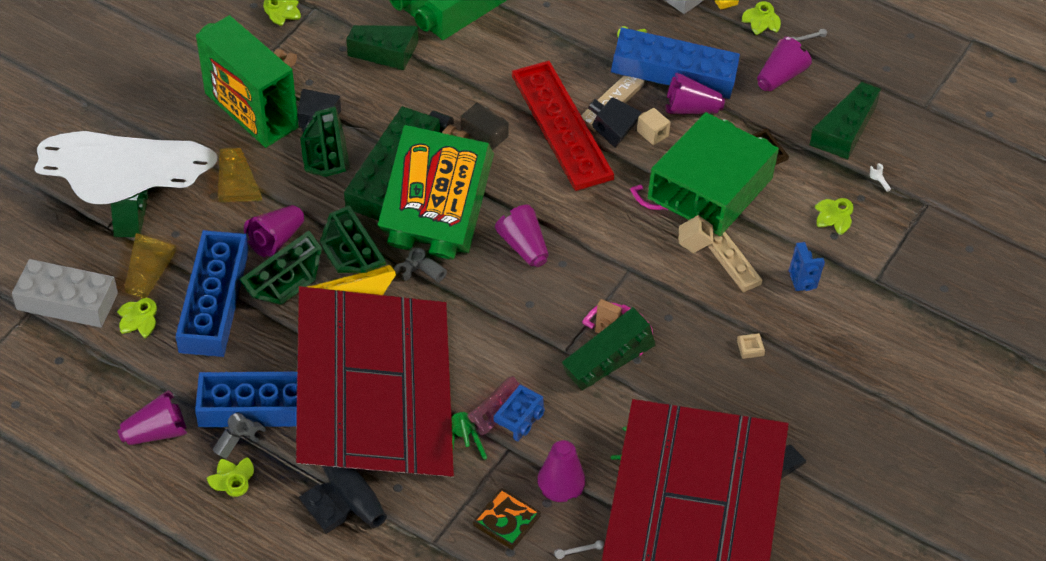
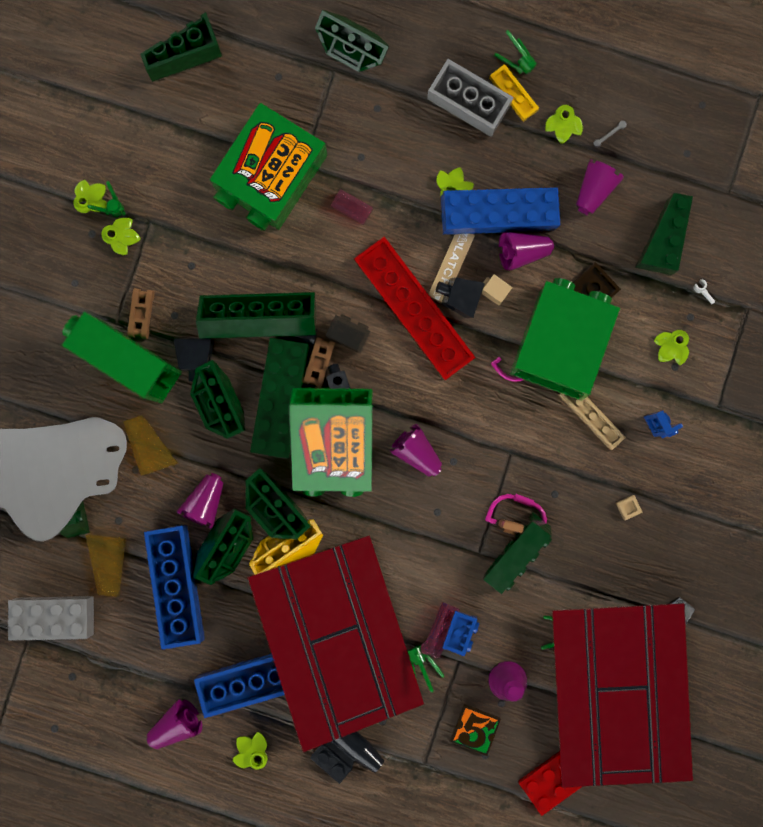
camera: 15 degrees left, 35 degrees up
(135, 318) = (118, 622): lime plate -> none
(238, 426) = (241, 718): dark grey bar -> none
(383, 44) = (228, 258): dark green wedge -> none
(396, 87) = (256, 315): none -> dark green brick
(418, 260) = (331, 497): dark grey bar -> none
(524, 34) = (351, 207): none -> clear pink plate
(559, 553) = (524, 749): light grey hinge -> none
(695, 234) = (561, 409): tan brick -> none

